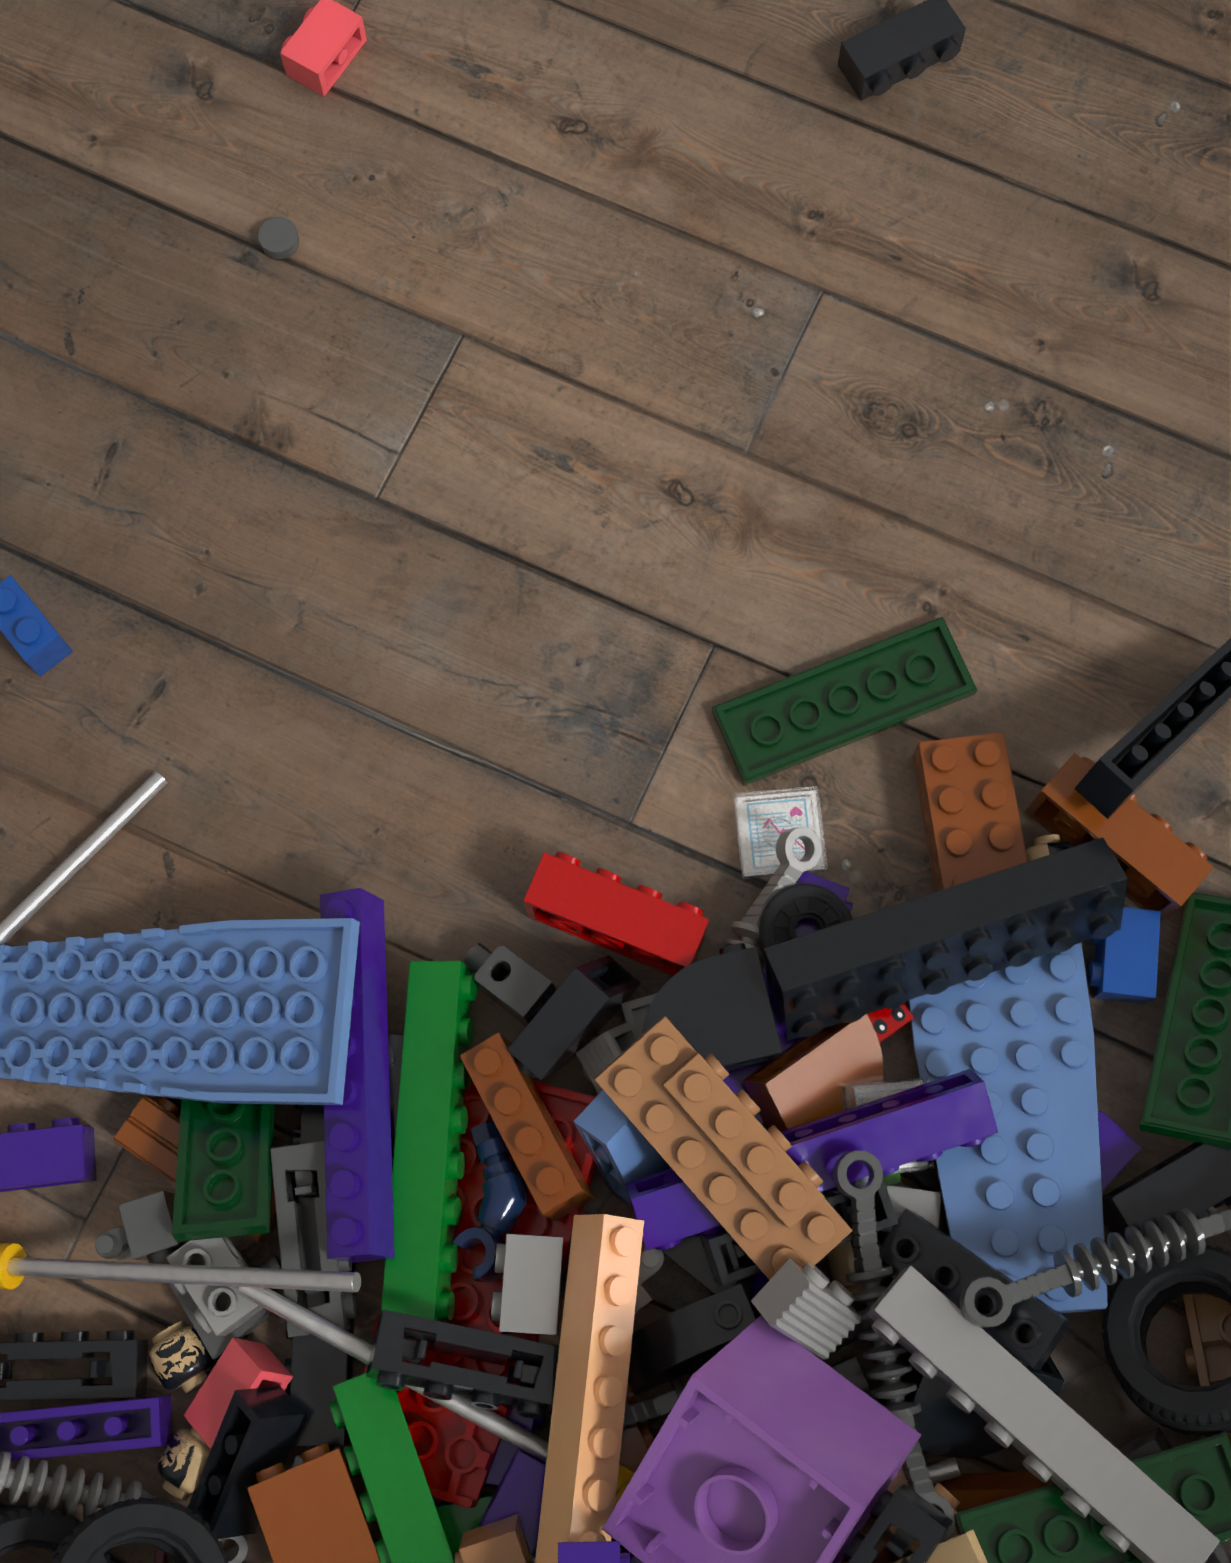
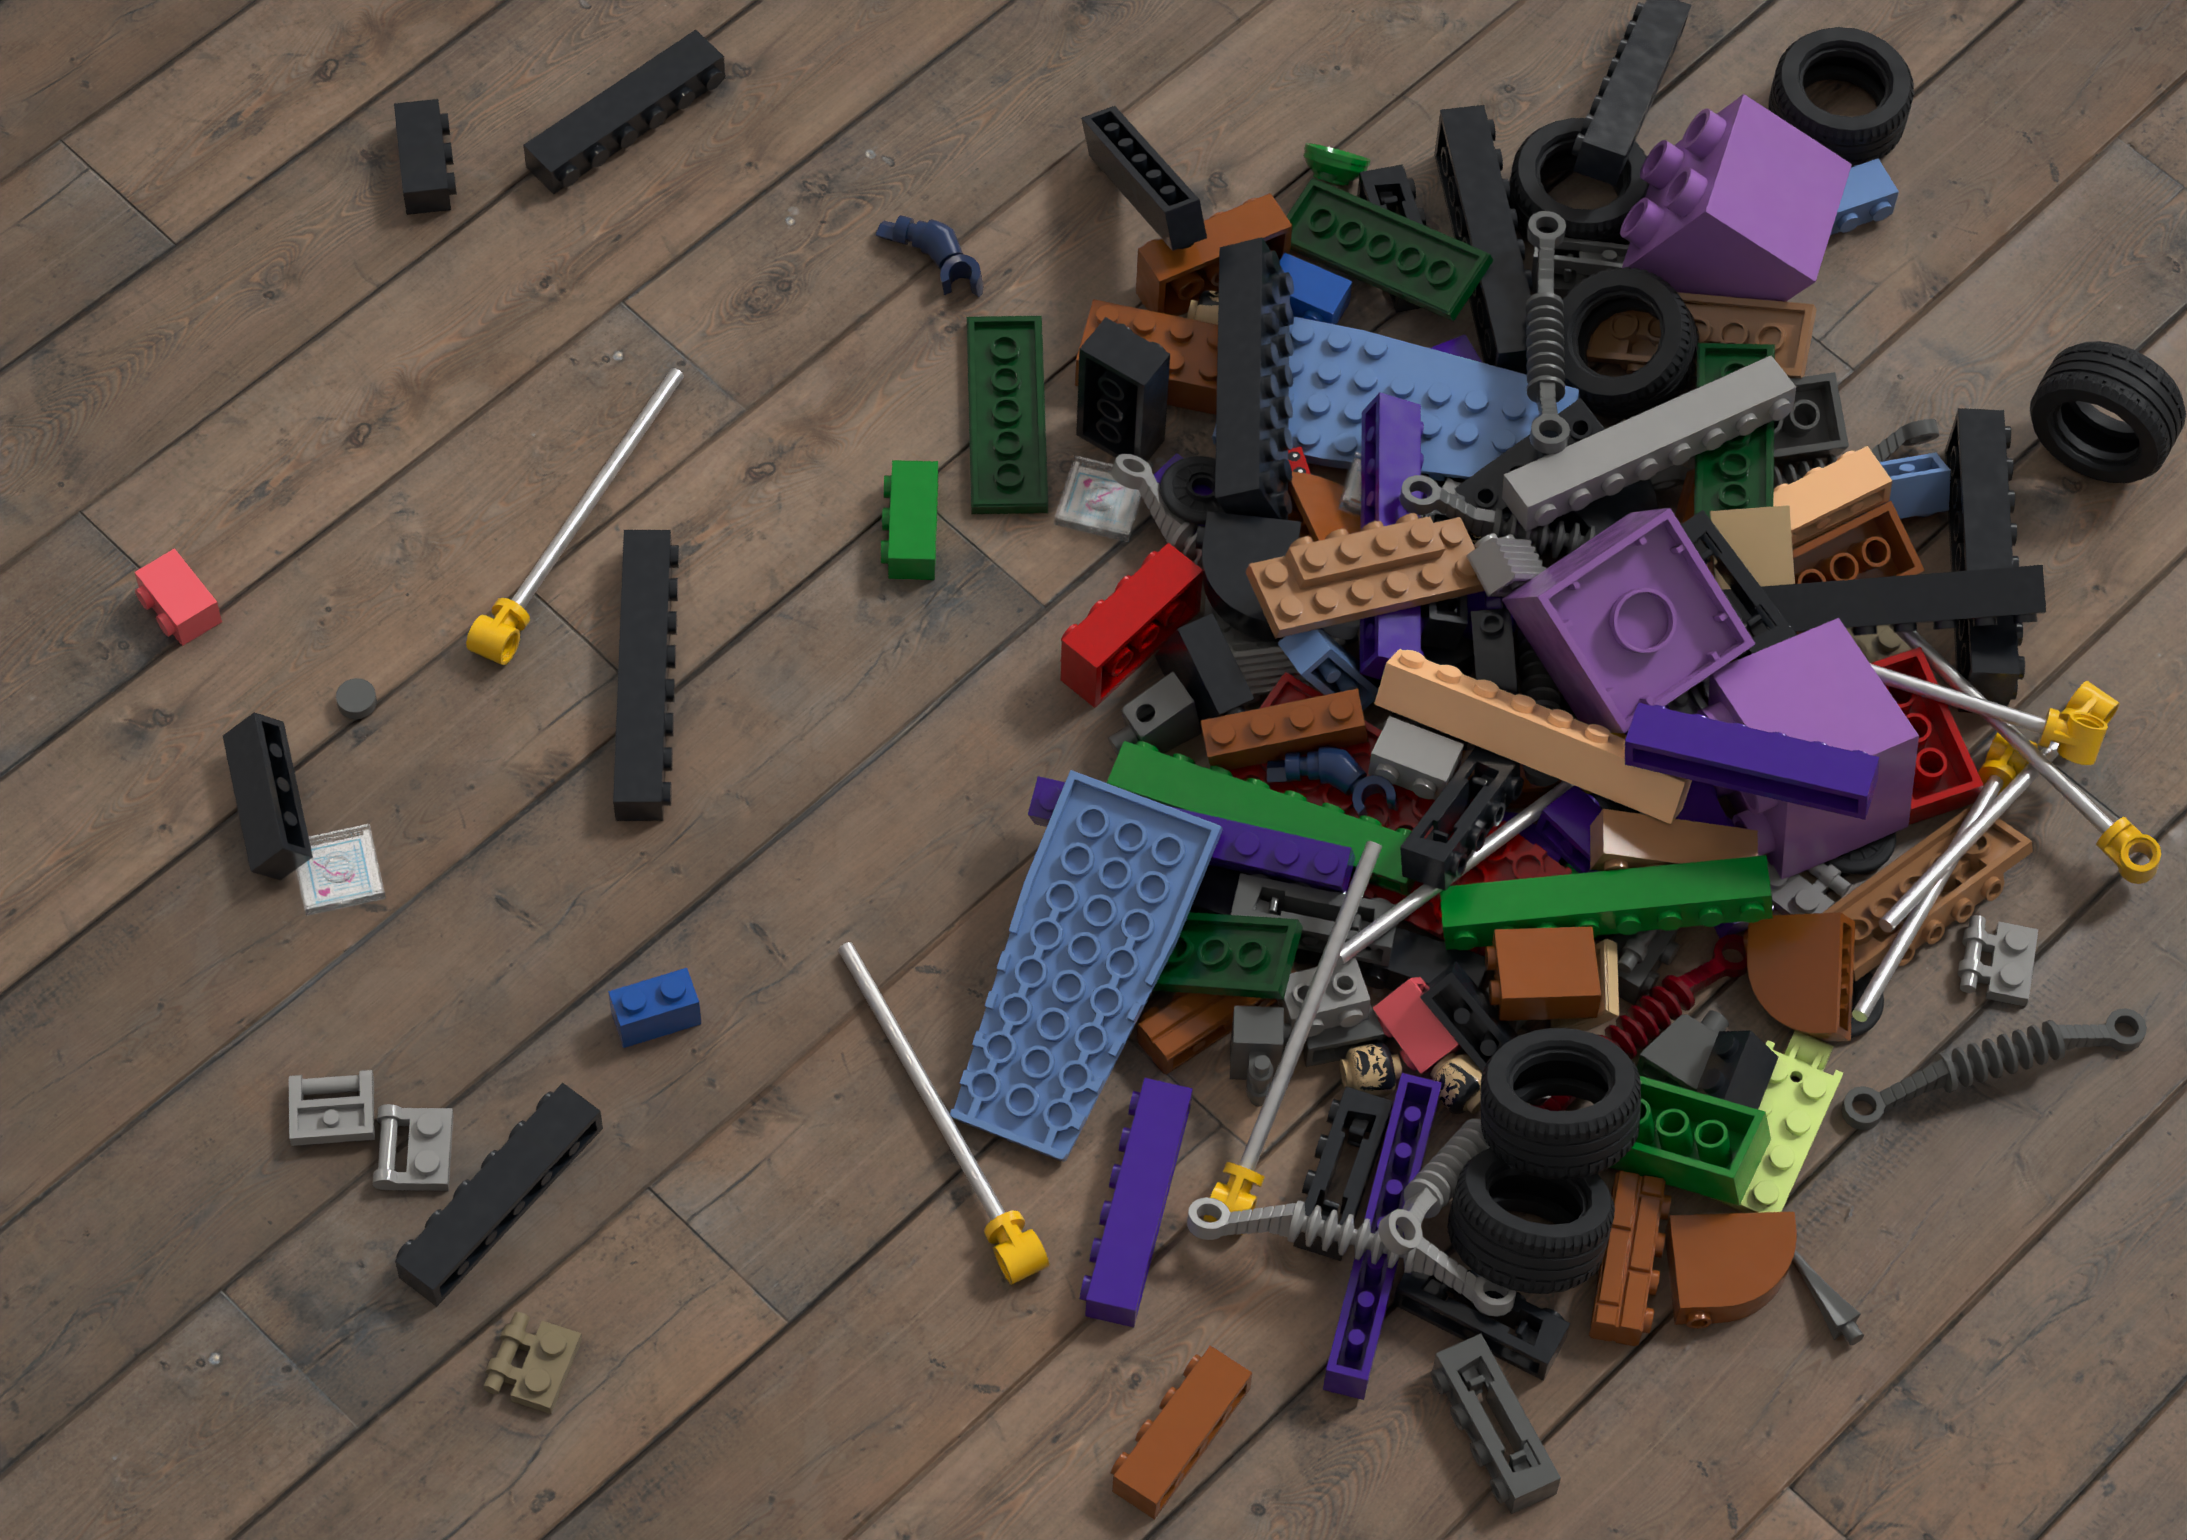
camera: 75 degrees left, 15 degrees down
(93, 296) = (341, 871): none -> clear tile
(133, 202) = (267, 796): none -> black brick
(384, 325) = (500, 637): none -> flat silver piece
(392, 474) = (643, 676): none -> black brick
(670, 654) = (911, 520): none -> green brick
(881, 803) = (1122, 391): none -> black brick
(1018, 558) = (940, 244): none -> dark blue piece
(1040, 202) = (624, 112): none -> black brick

